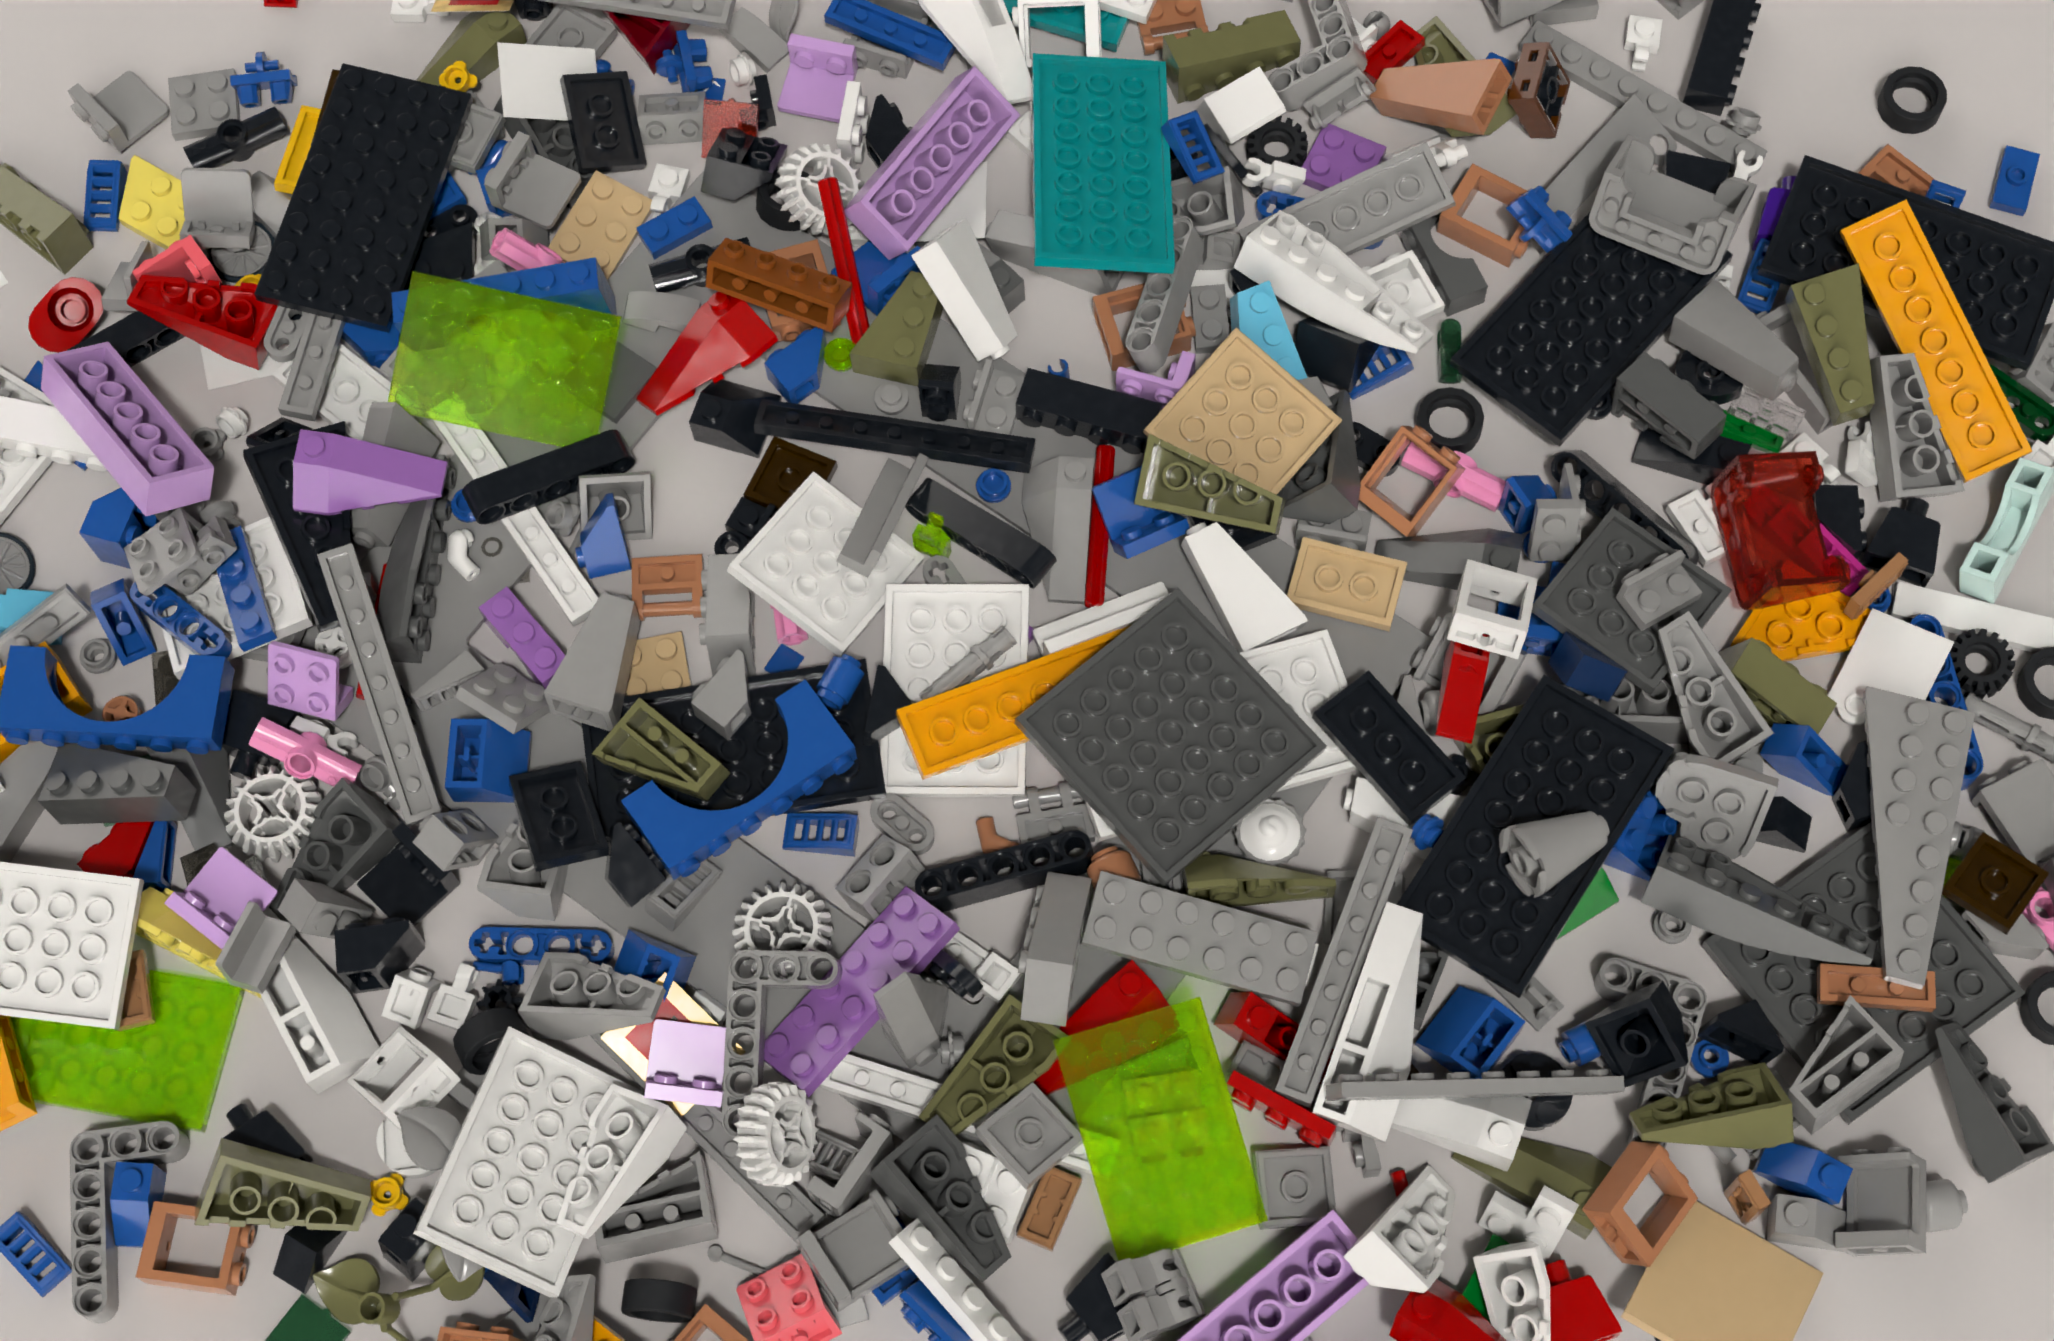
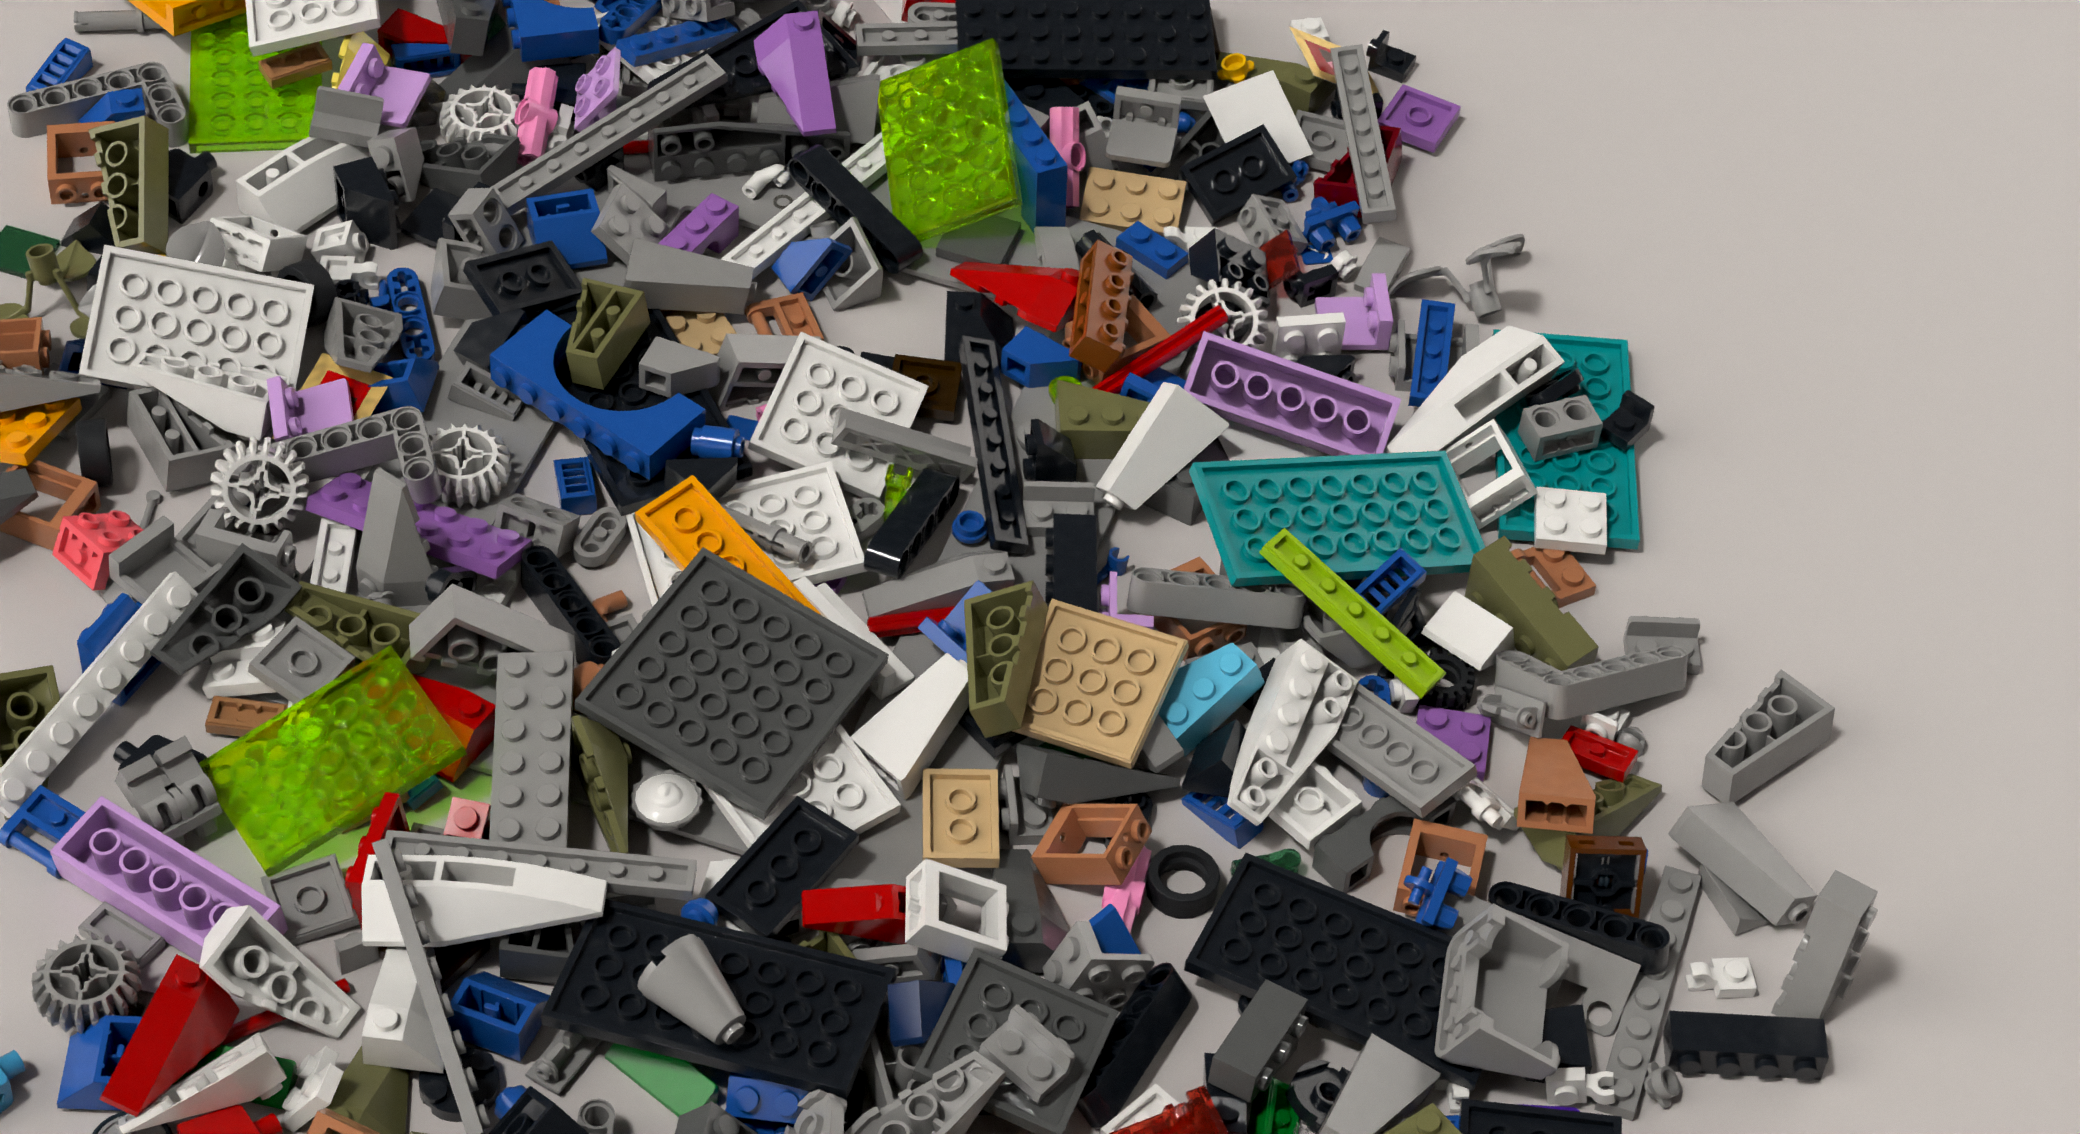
camera: 65 degrees right, 20 degrees down
(1220, 186) = (1352, 613): none -> lime tile
(1586, 113) = (1609, 930): none -> black beam

